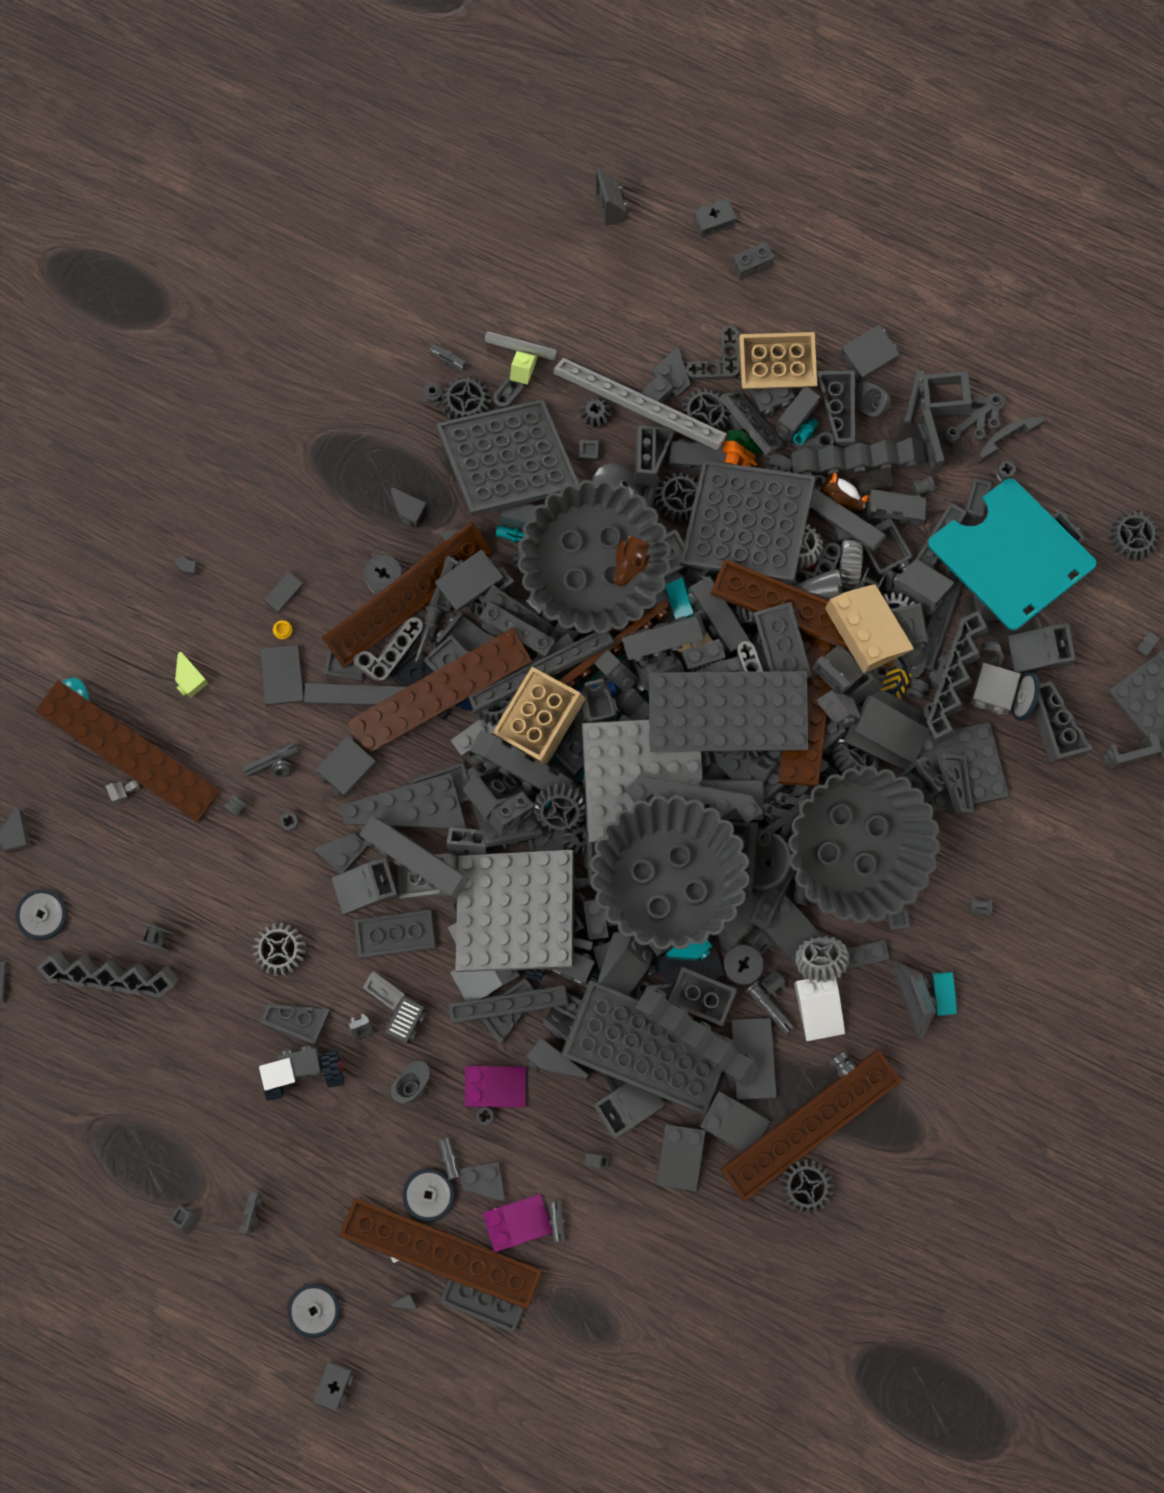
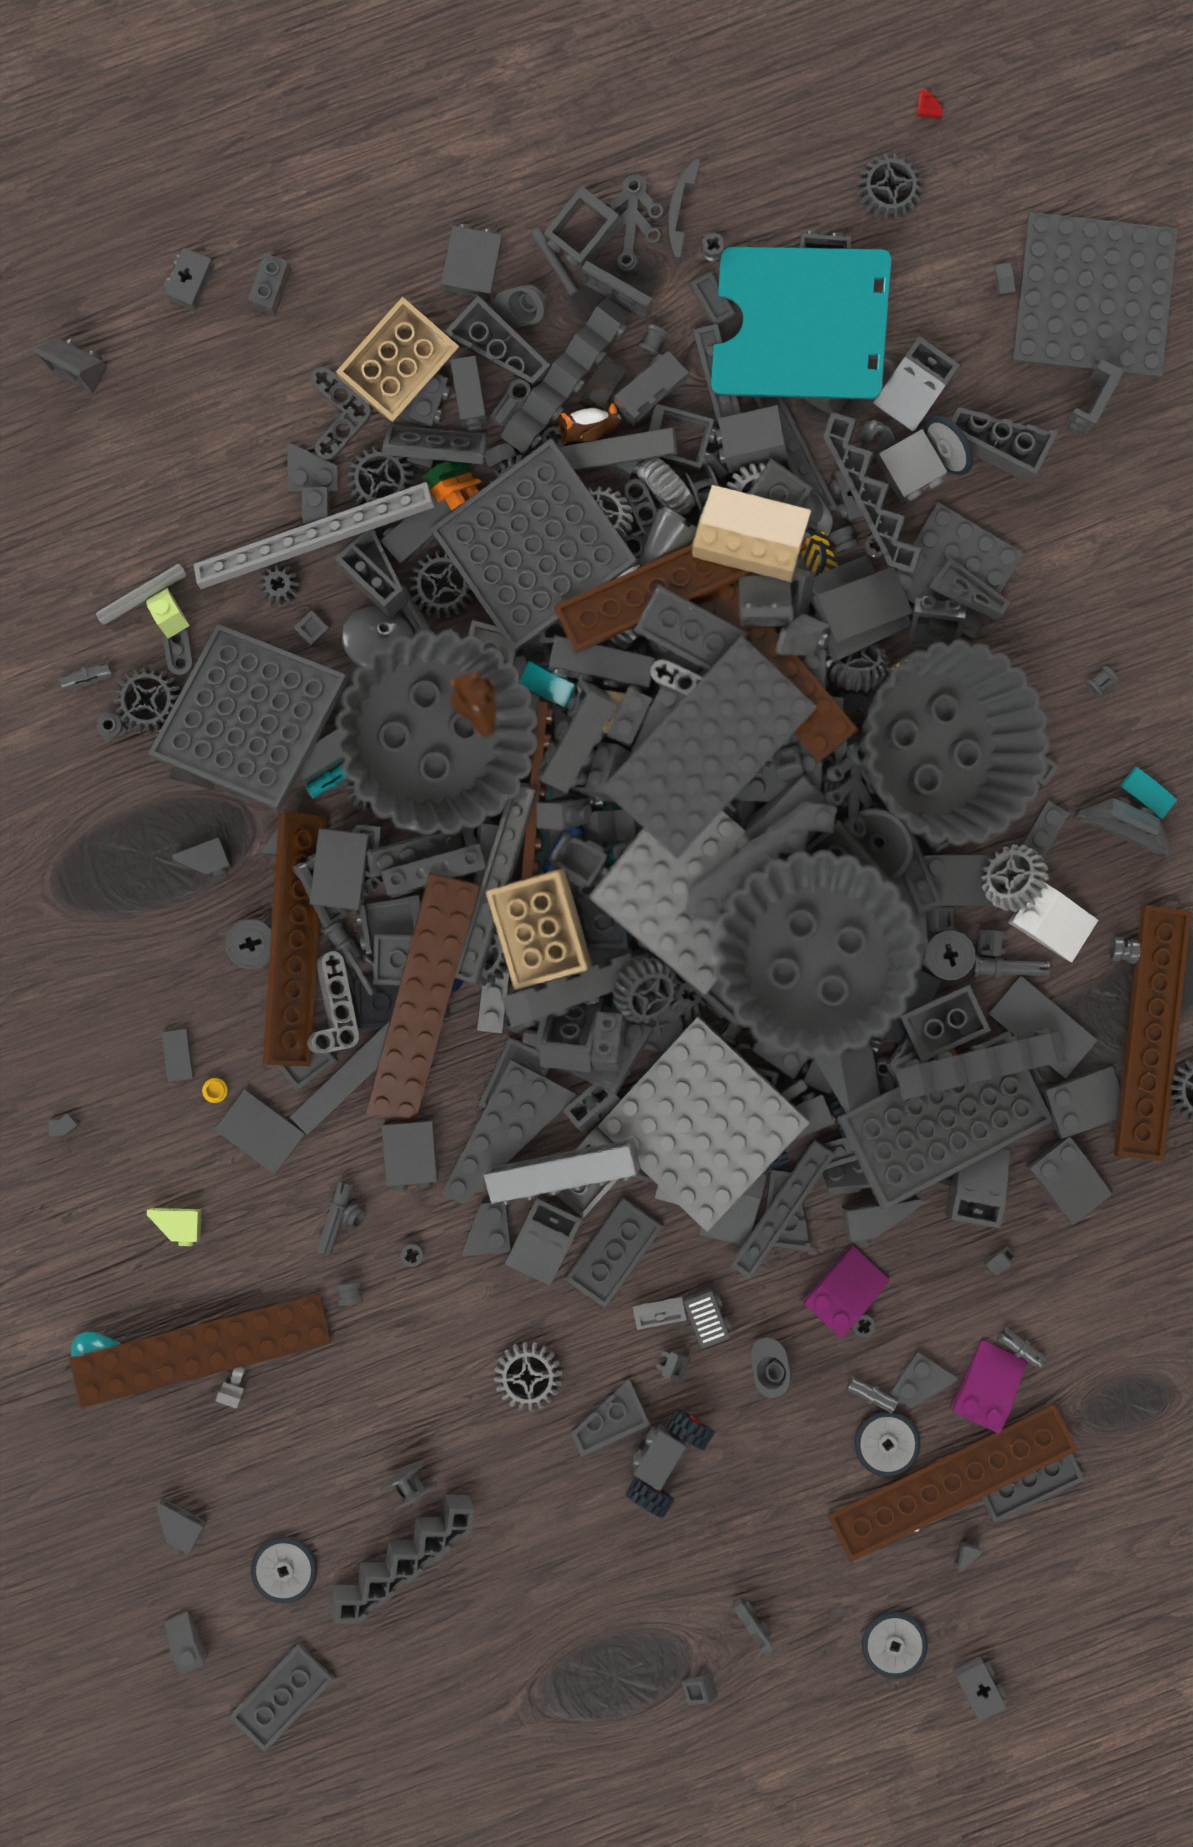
camera: 50 degrees left, 10 degrees up
(276, 1074) = (651, 1489): white sticker -> none
(805, 431) = (492, 401): teal pin -> none

